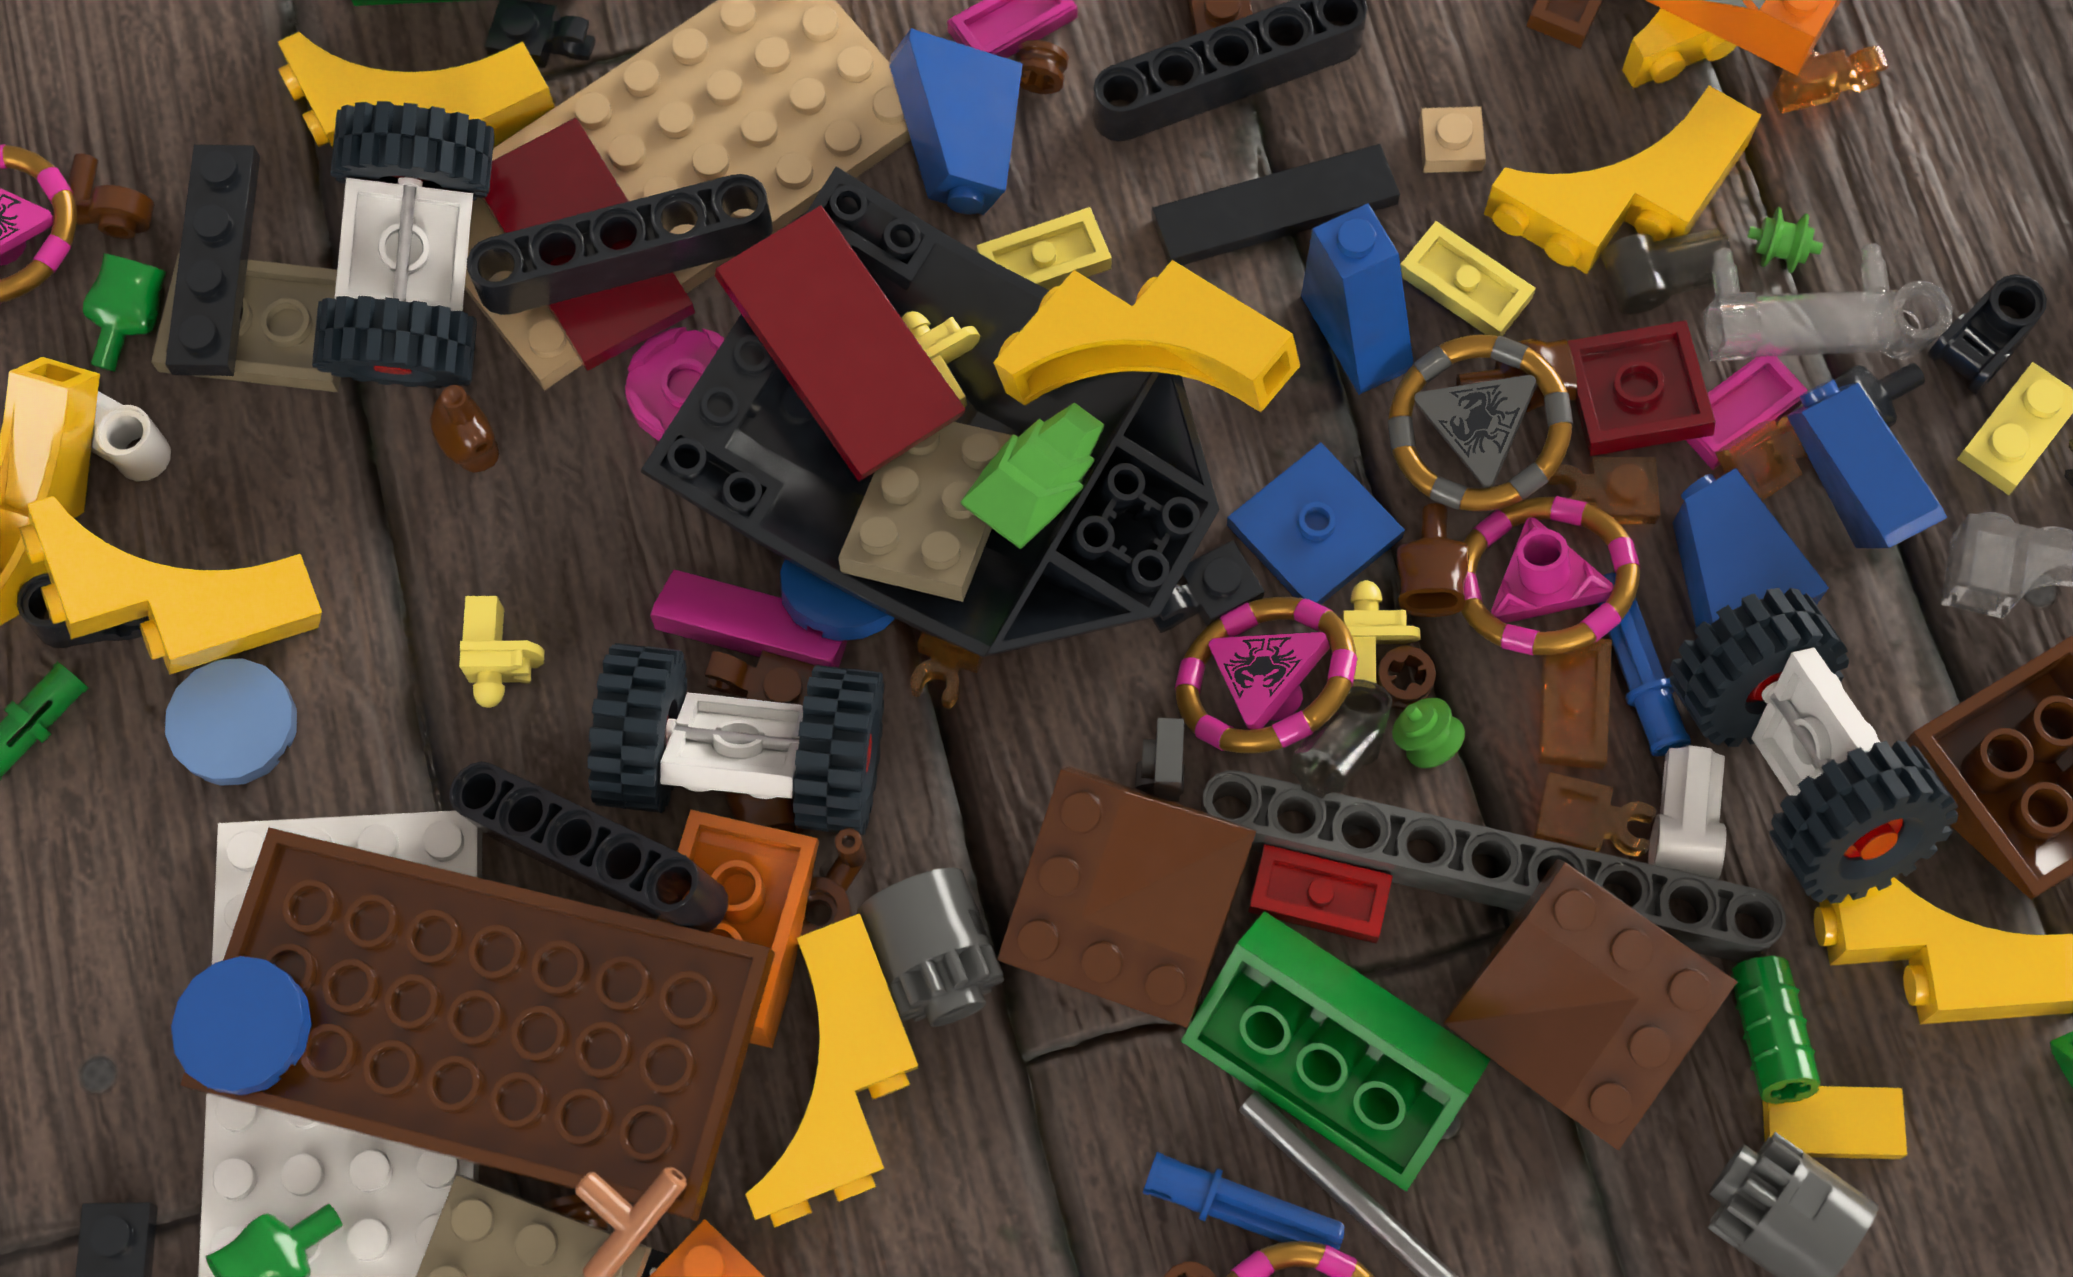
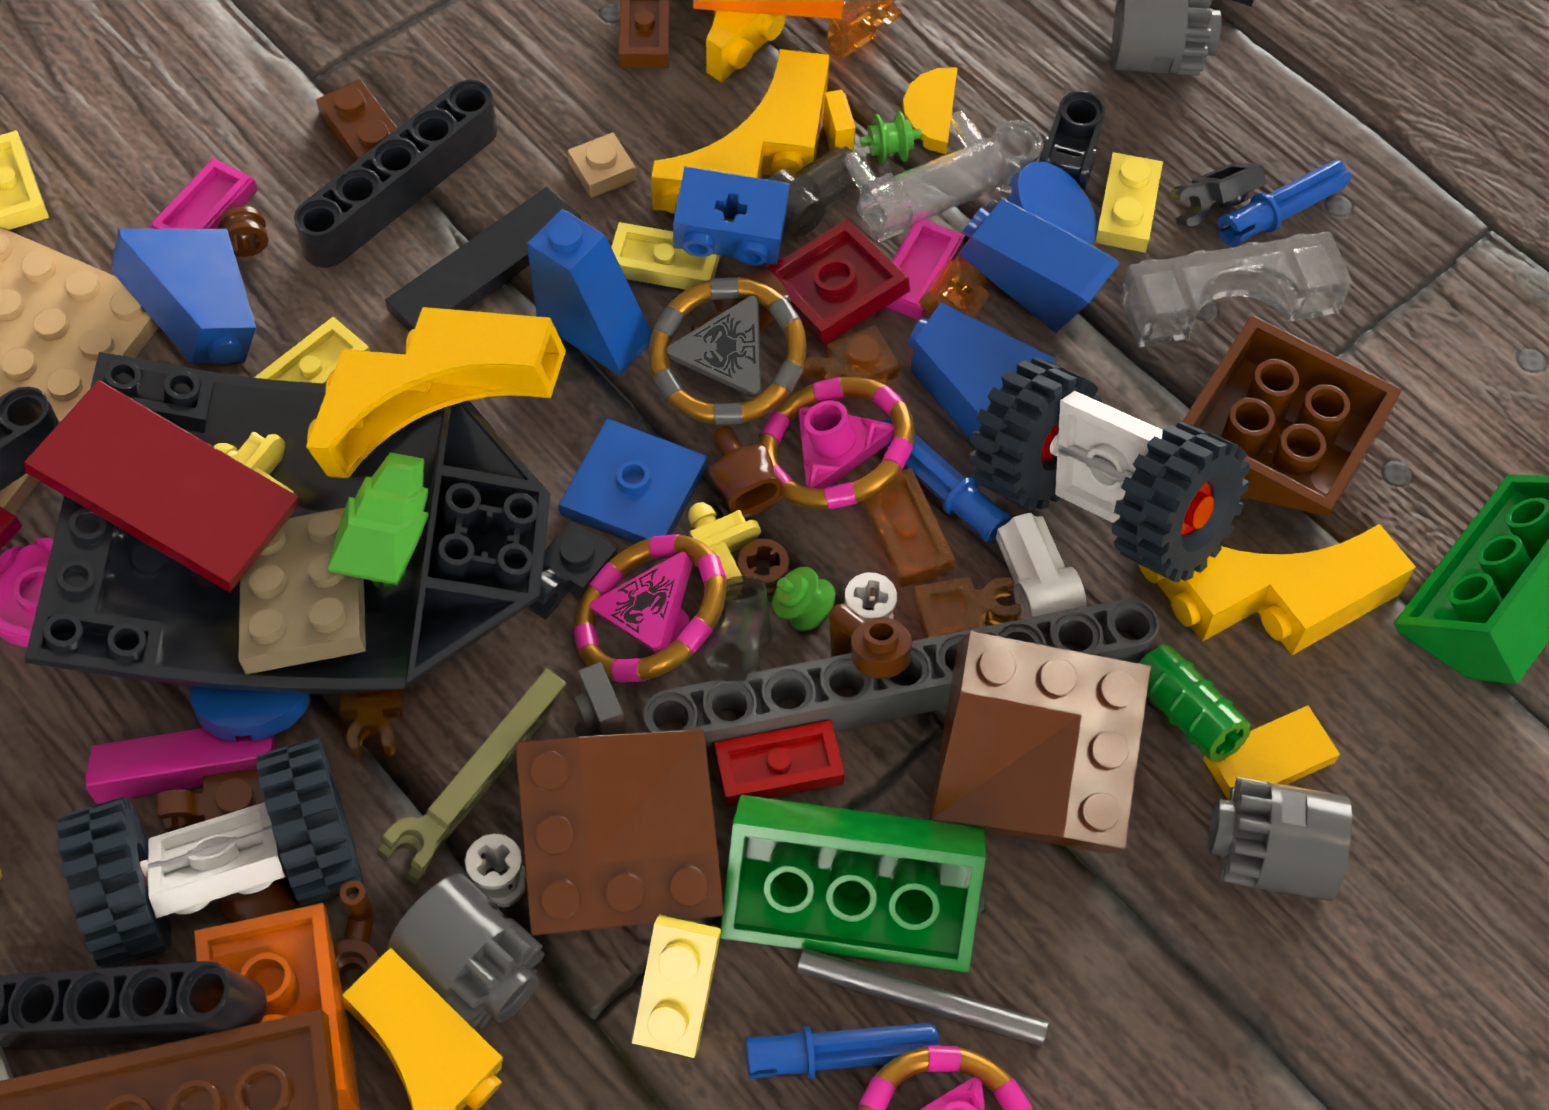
camera: 30 degrees left, 10 degrees down
(1008, 862) = (500, 854): none -> white bush
(1017, 776) = (429, 833): none -> olive tile
(1113, 1072) = (676, 985): none -> light yellow plate
(1457, 802) = (877, 645): none -> reddish brown plate
(1481, 758) = (858, 596): none -> white bush
(1535, 245) = (713, 197): none -> blue brick
(1734, 199) = (838, 120): none -> yellow tile
(1851, 217) = (930, 105): none -> yellow tile
(1924, 404) = (1054, 198): none -> blue tile

